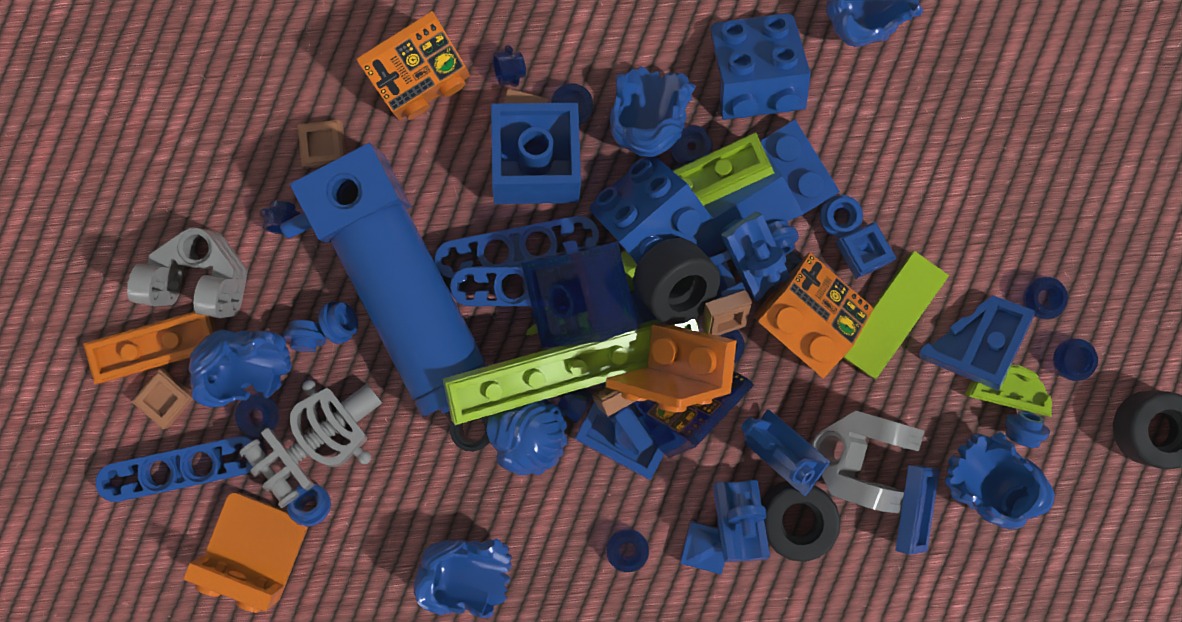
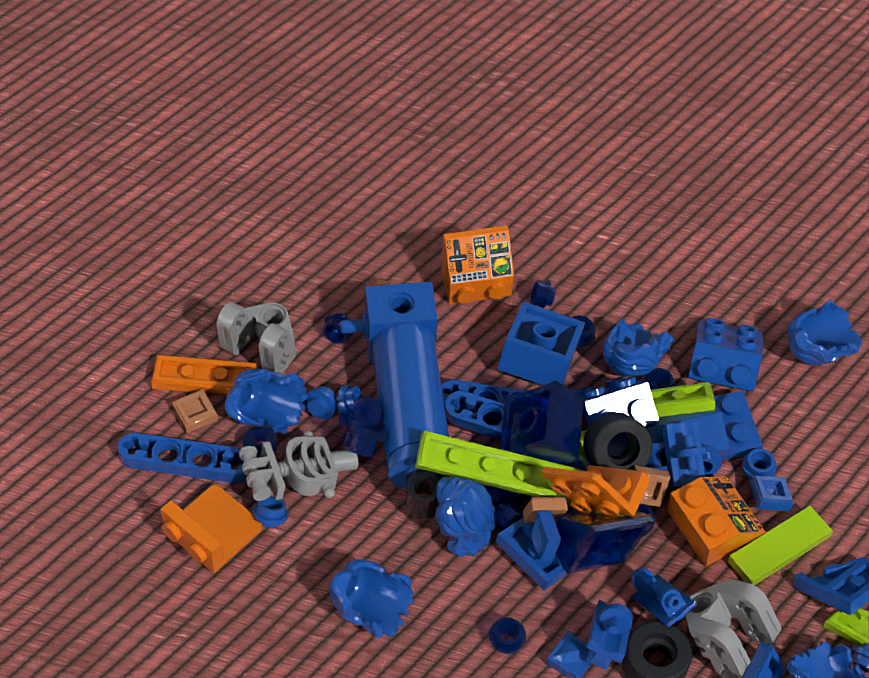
camera: 15 degrees right, 35 degrees down
(369, 369) = (363, 429): none -> clear blue hips

